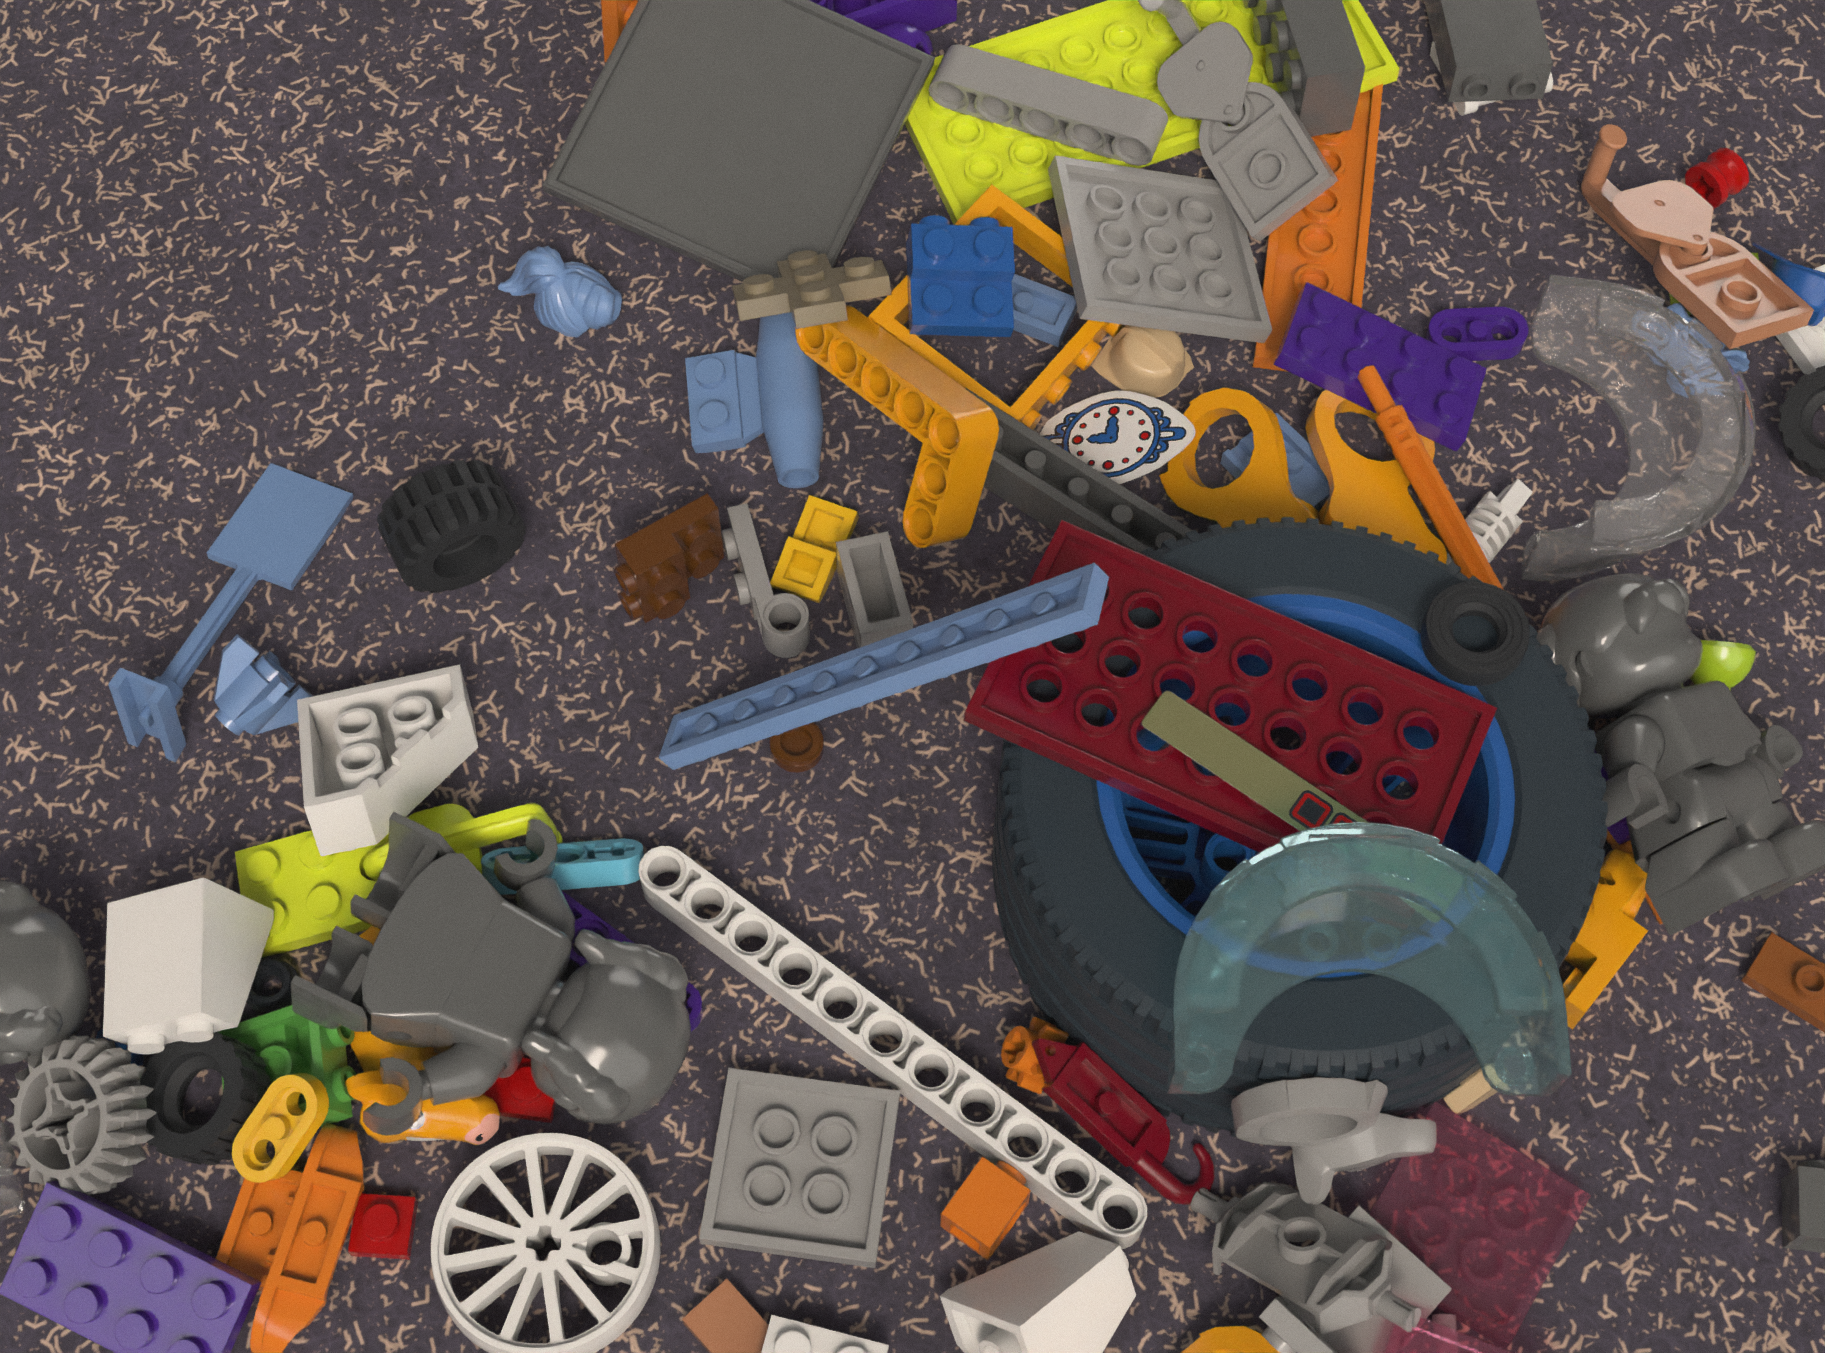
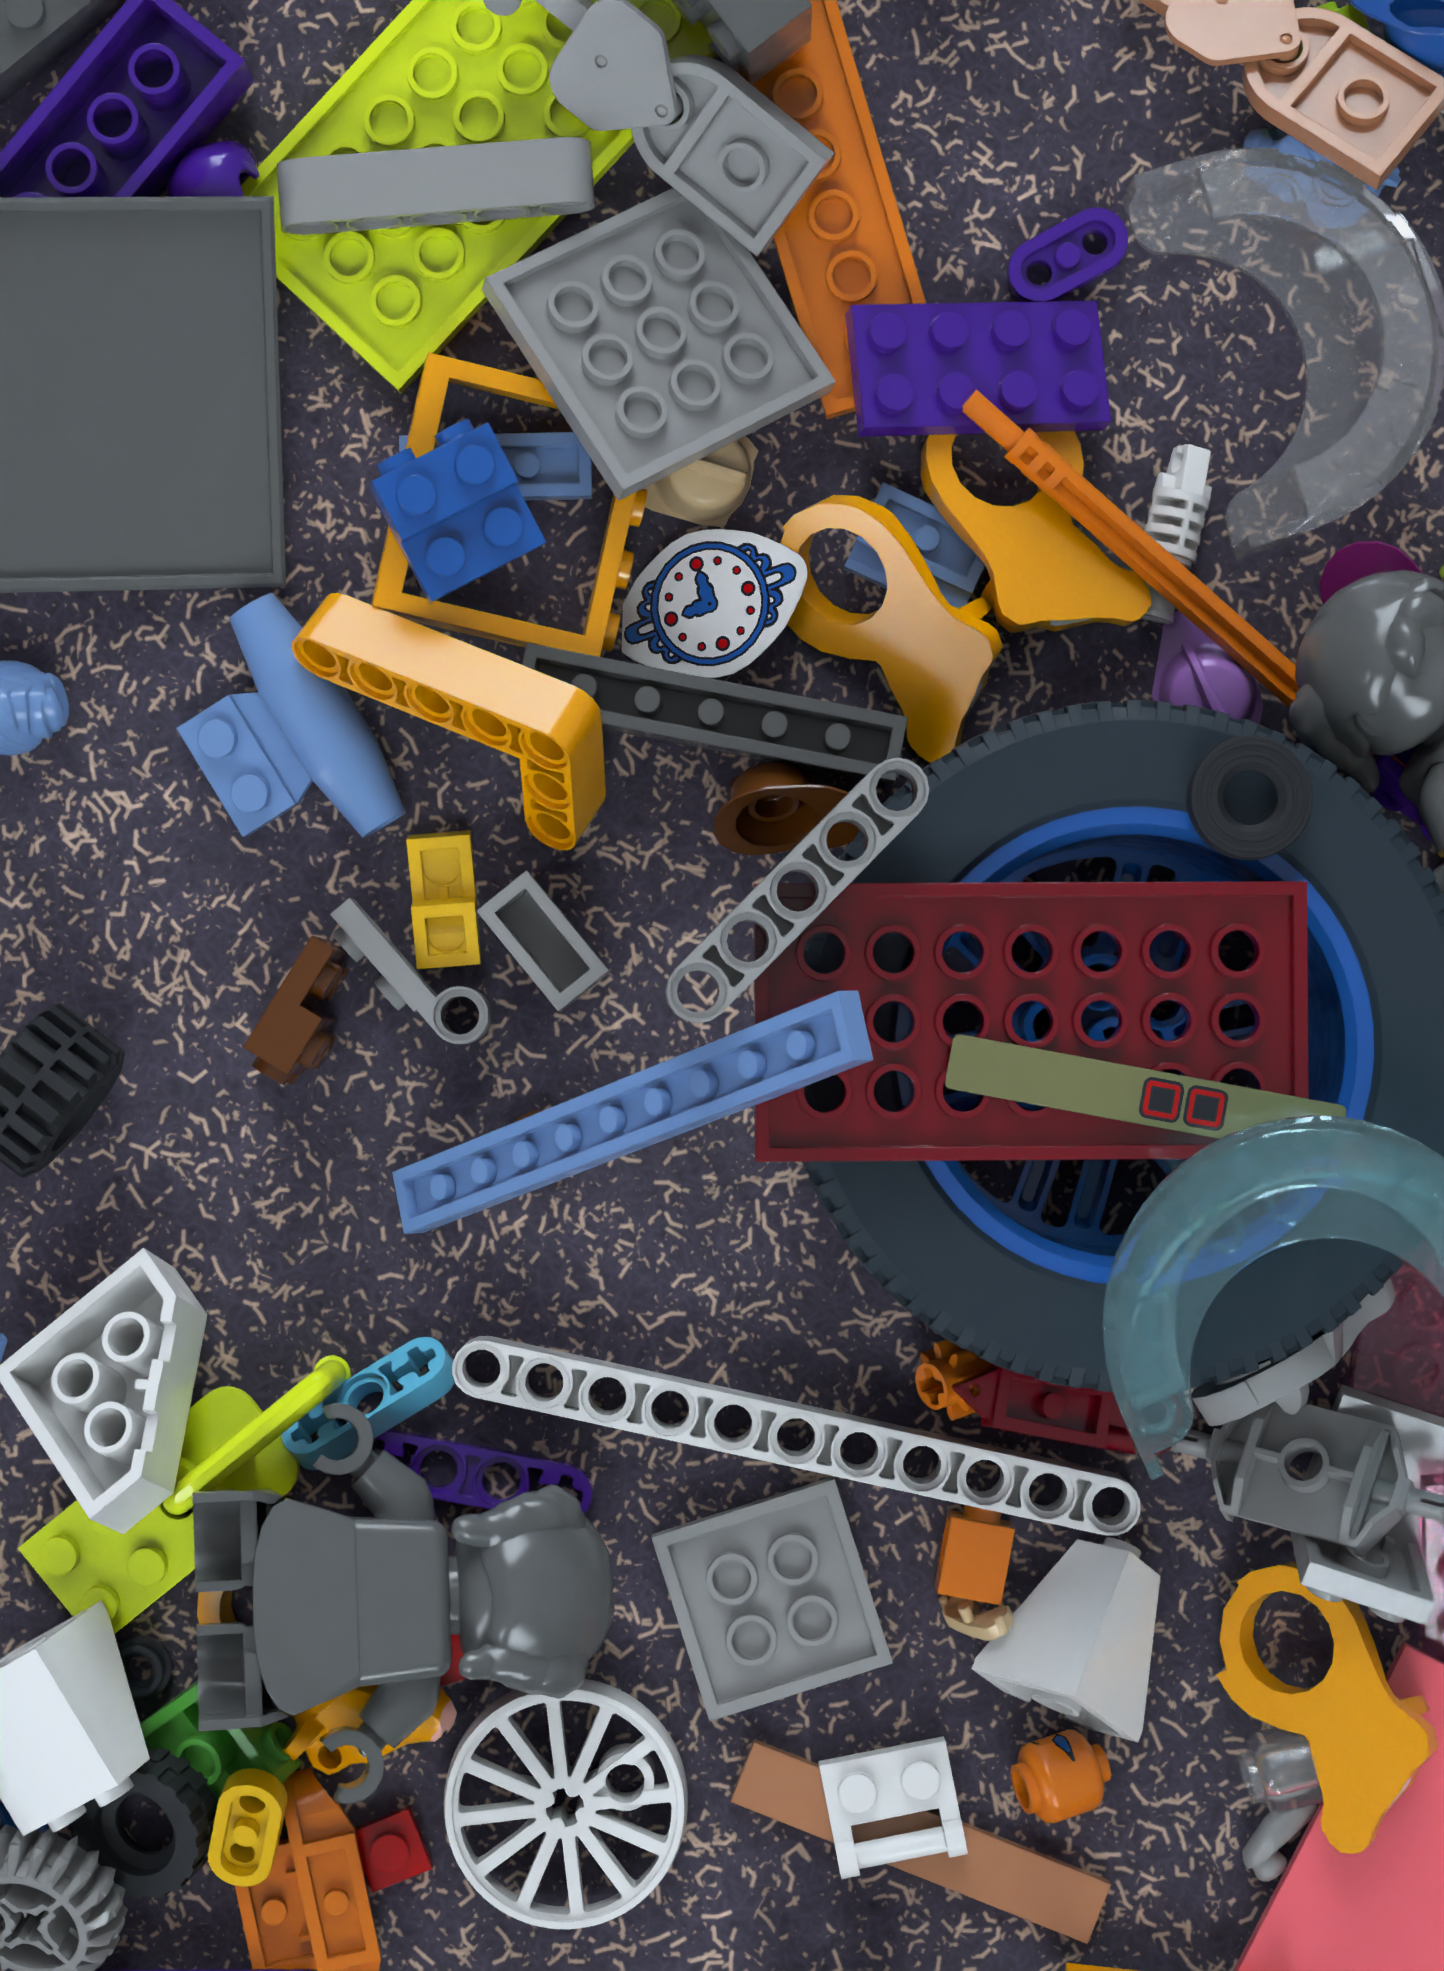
camera: 25 degrees left, 25 degrees up
(811, 289) = (289, 602): dark tan plate -> none
(957, 1258) = (965, 1617): none -> tan piece
(1075, 545) = (825, 871): none -> light grey beam

